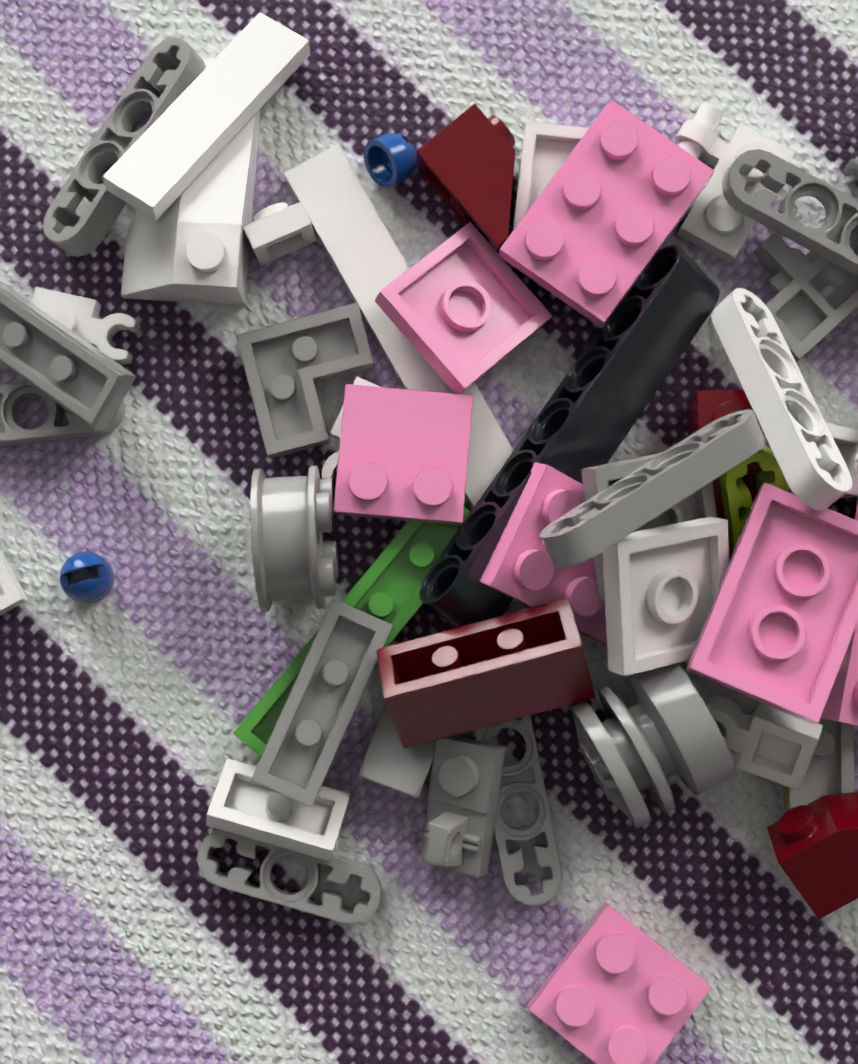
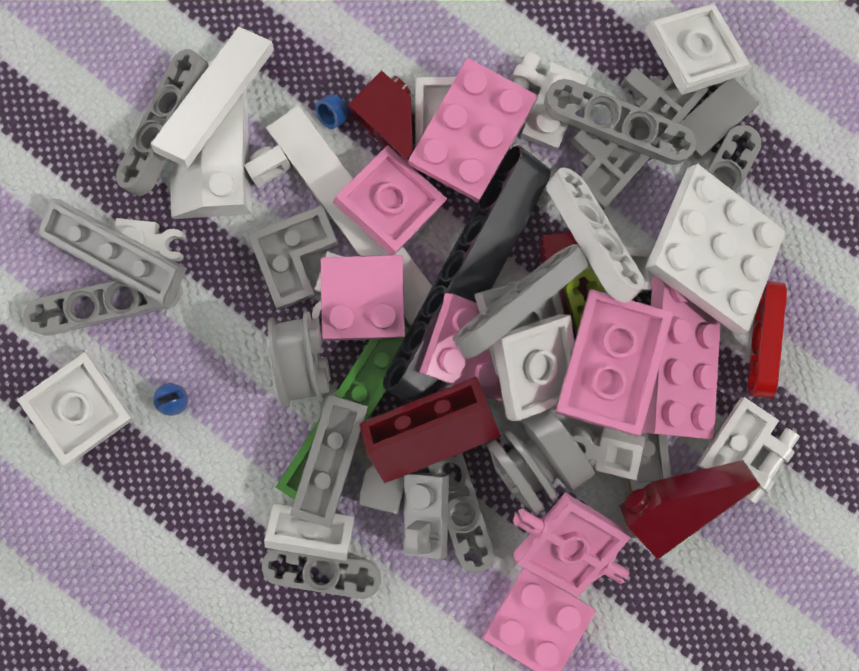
camera: 10 degrees left, 0 degrees up
(685, 881) = (571, 545): none -> bright pink plate

